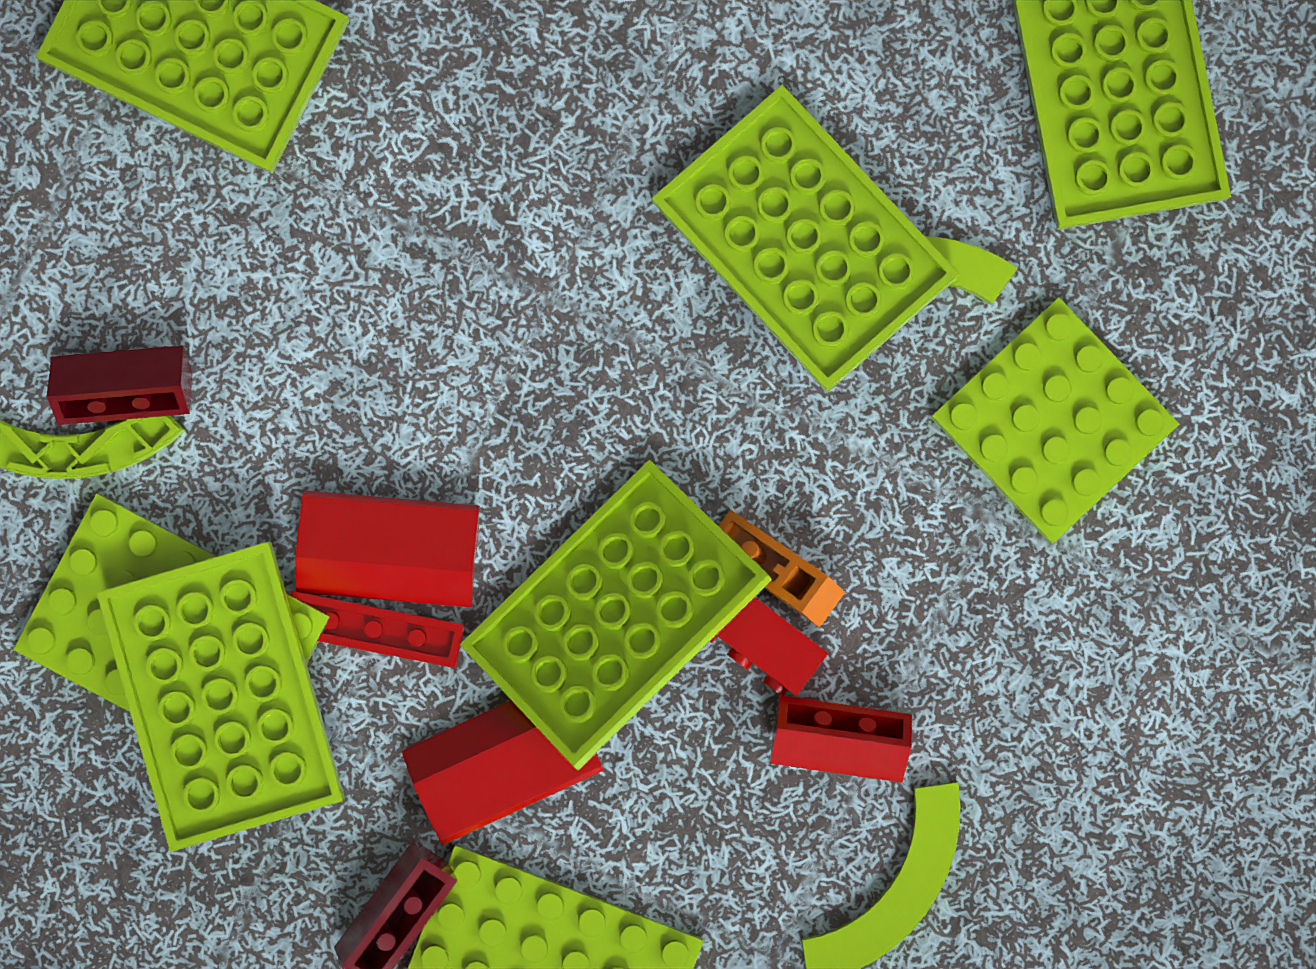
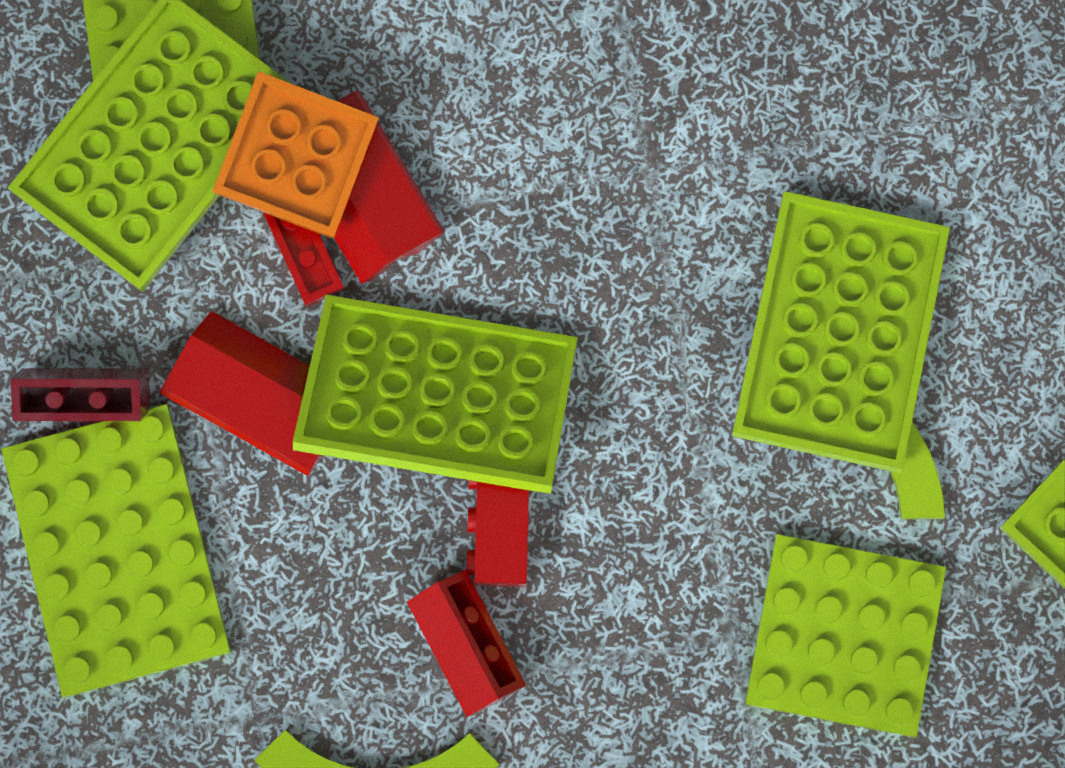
camera: 60 degrees right, 5 degrees down
(324, 586) = (295, 154): none -> orange plate
(793, 578) = (566, 505): orange slope -> none

